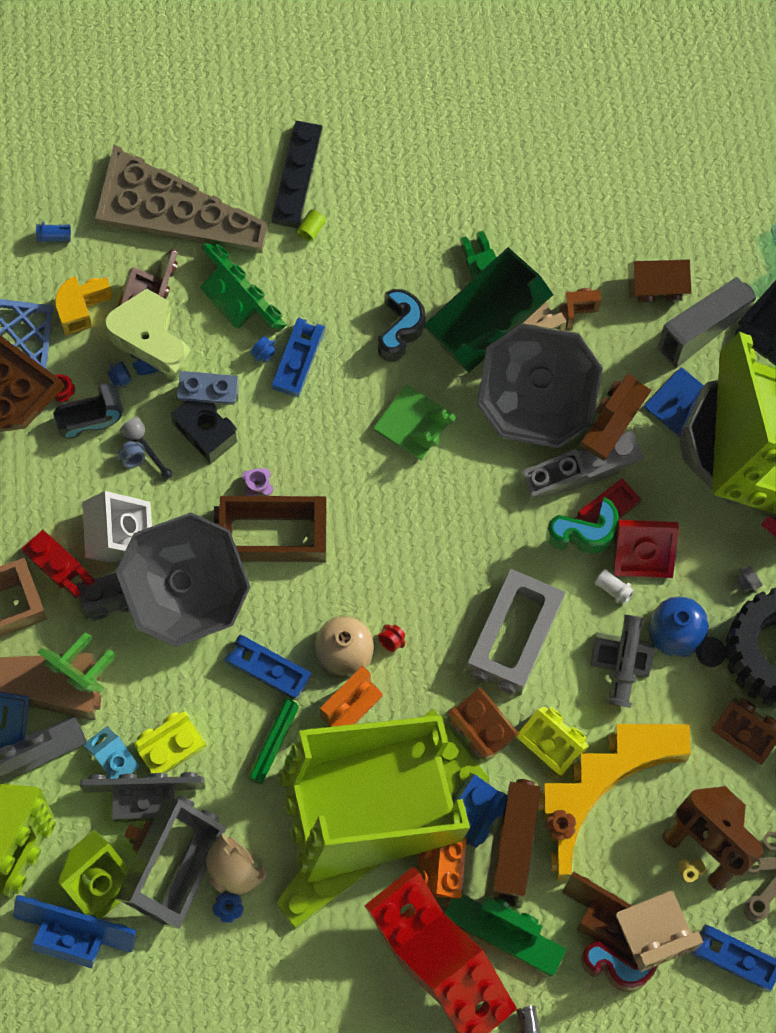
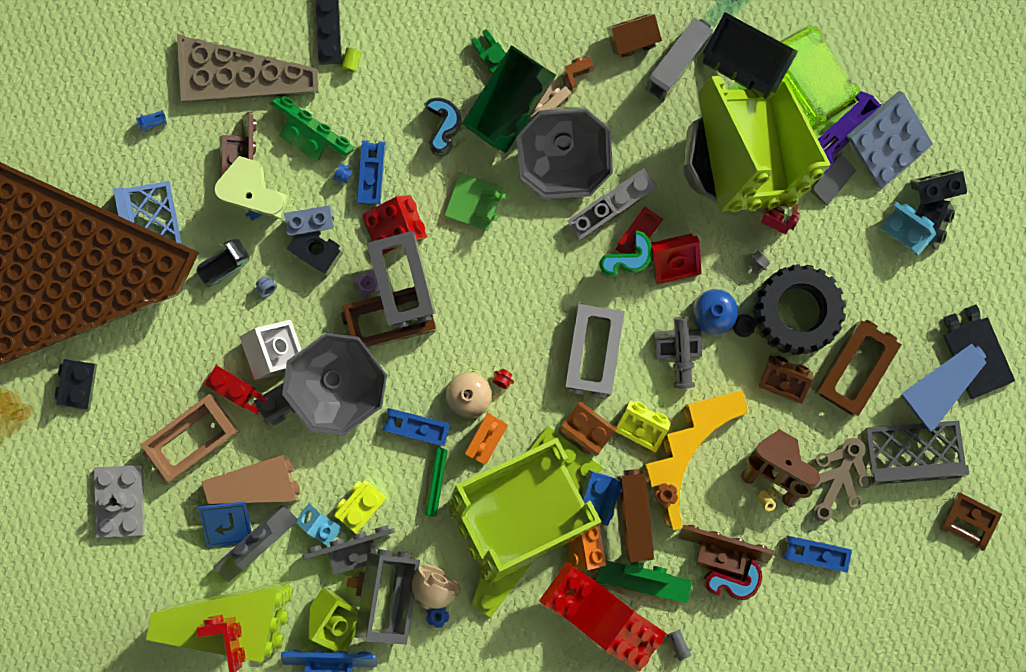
camera: 10 degrees left, 15 degrees up
(68, 390) = (196, 240): red plate -> none
(75, 298) = (183, 174): yellow brick -> none
(76, 678) = (280, 485): bright green plate -> none
(119, 374) = (237, 224): blue plate -> none
(134, 431) = (262, 268): hinge -> none
(309, 421) = (394, 218): none -> red bracket
(318, 523) = (426, 306): none -> dark grey piece
(615, 415) = (628, 160): reddish brown bracket -> none
(615, 587) = (660, 294): white pin -> none
(657, 931) = (756, 556): tan bracket -> none
(674, 400) = (671, 129): blue piece -> none

